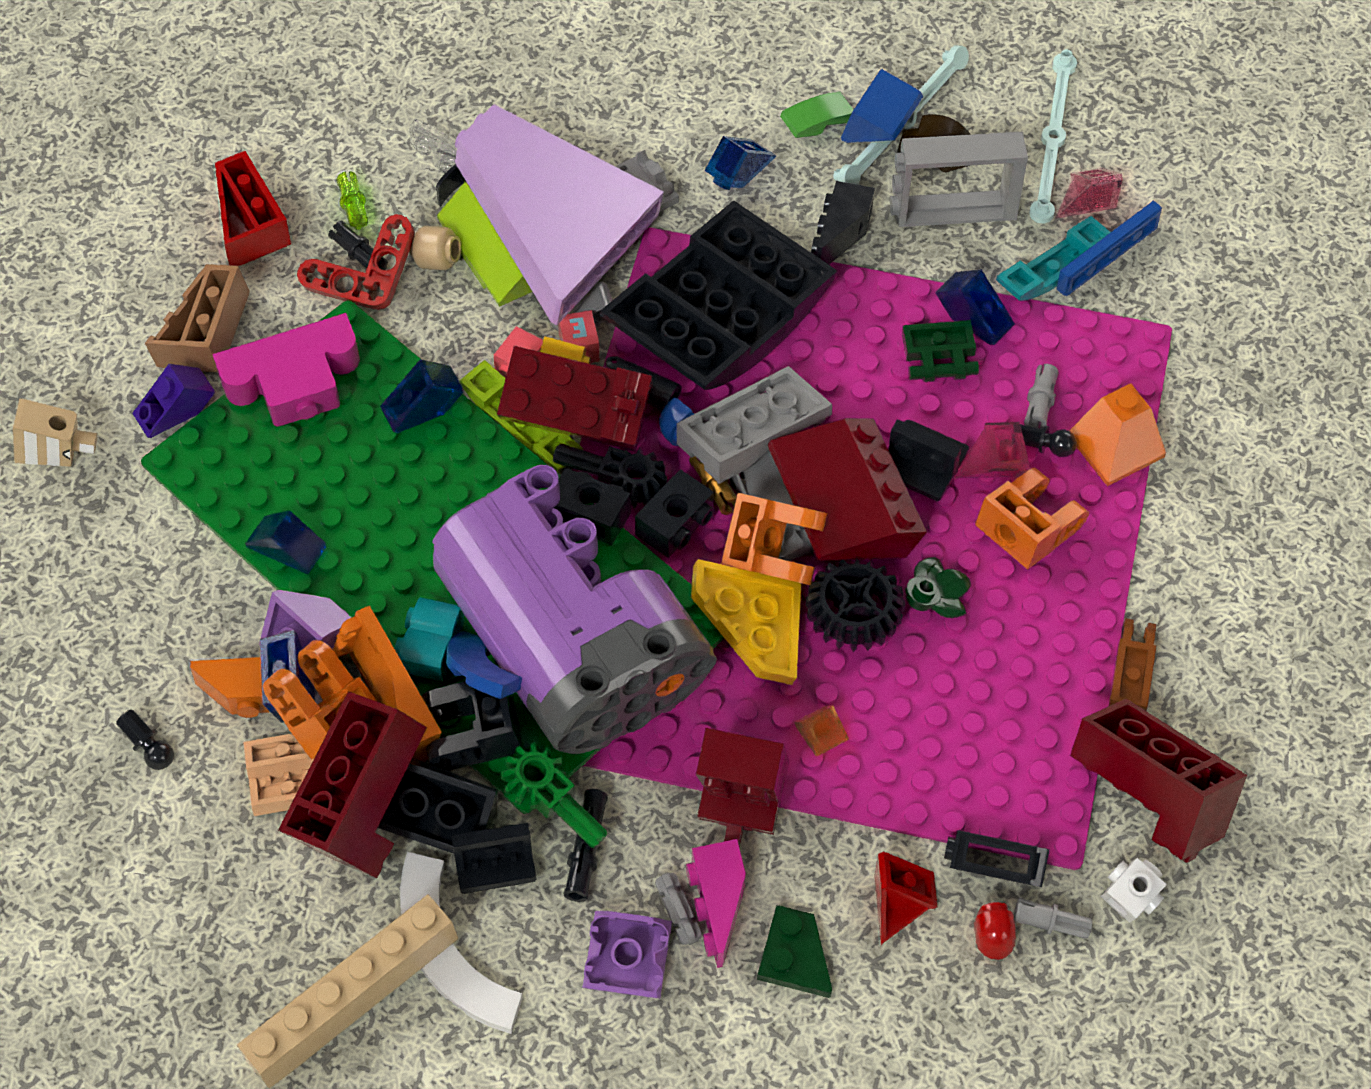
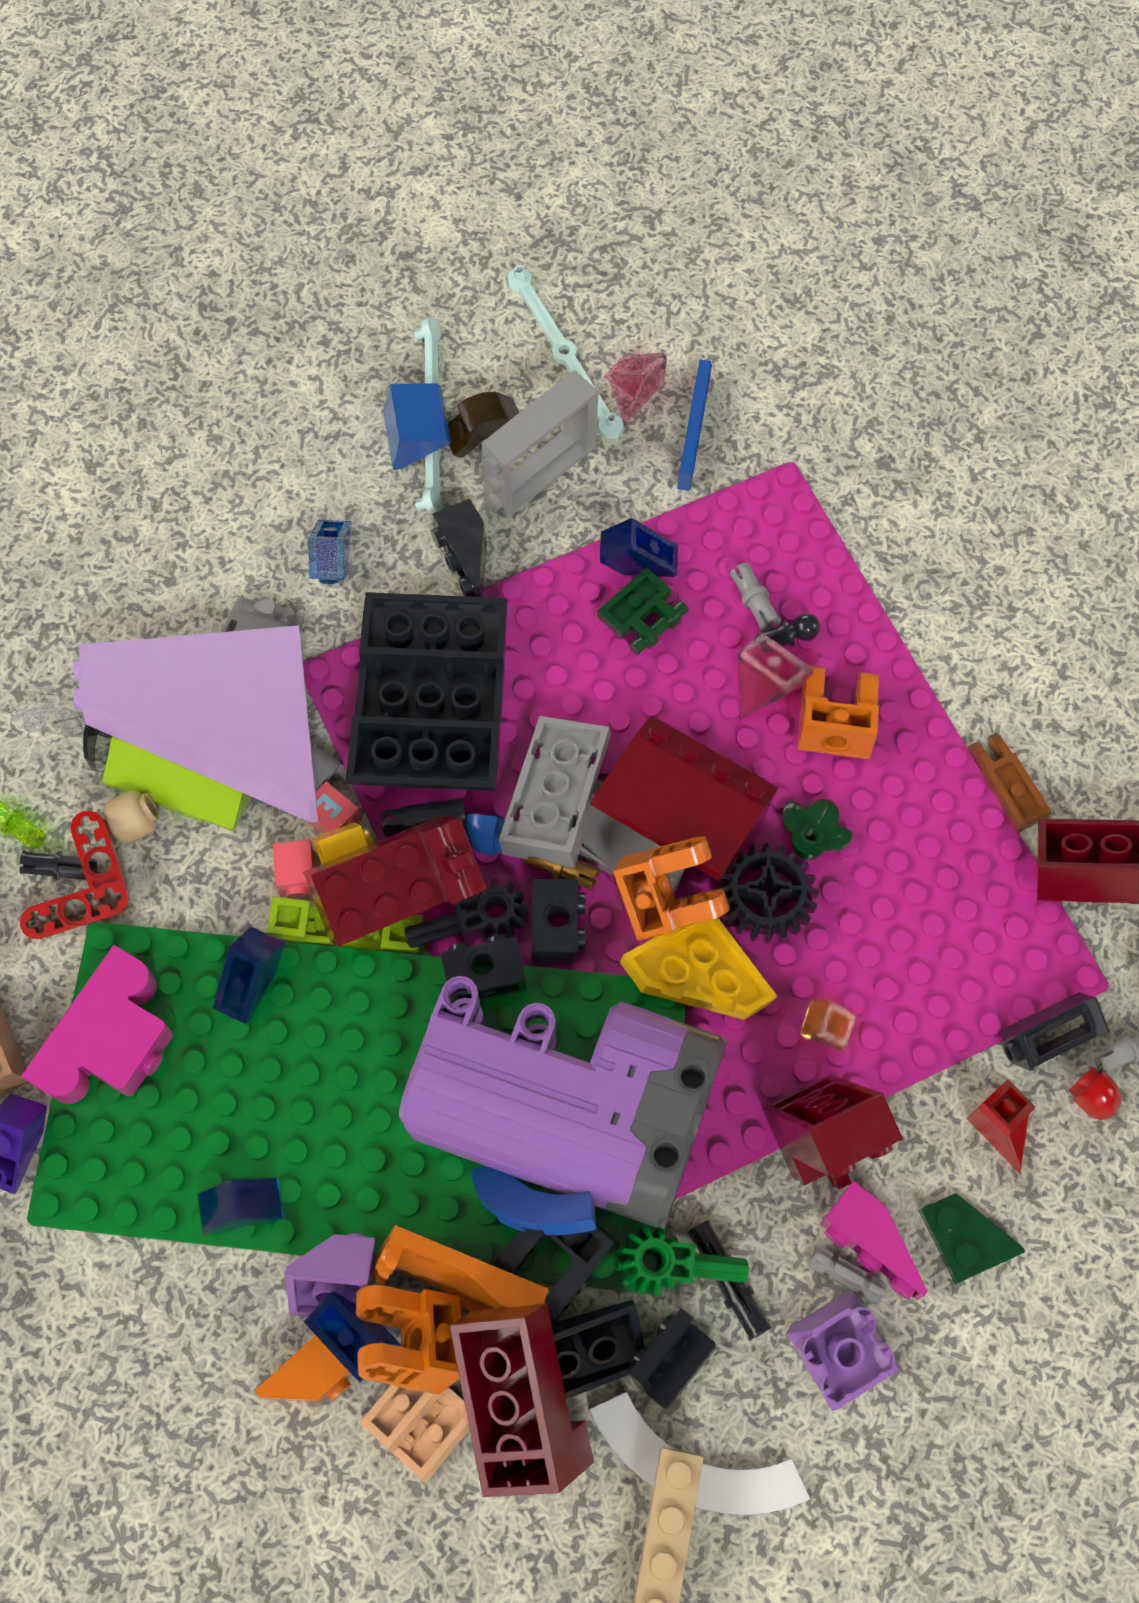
camera: 40 degrees left, 10 degrees up
(158, 753) = (289, 1495): black axle -> none
(427, 637) = (452, 1202): teal brick -> none
(814, 114) = (356, 460): bright green slope -> none
(925, 458) = (713, 716): black bracket -> none
(1043, 272) = (662, 463): teal slope -> none
(1119, 435) = (842, 589): orange slope -> none

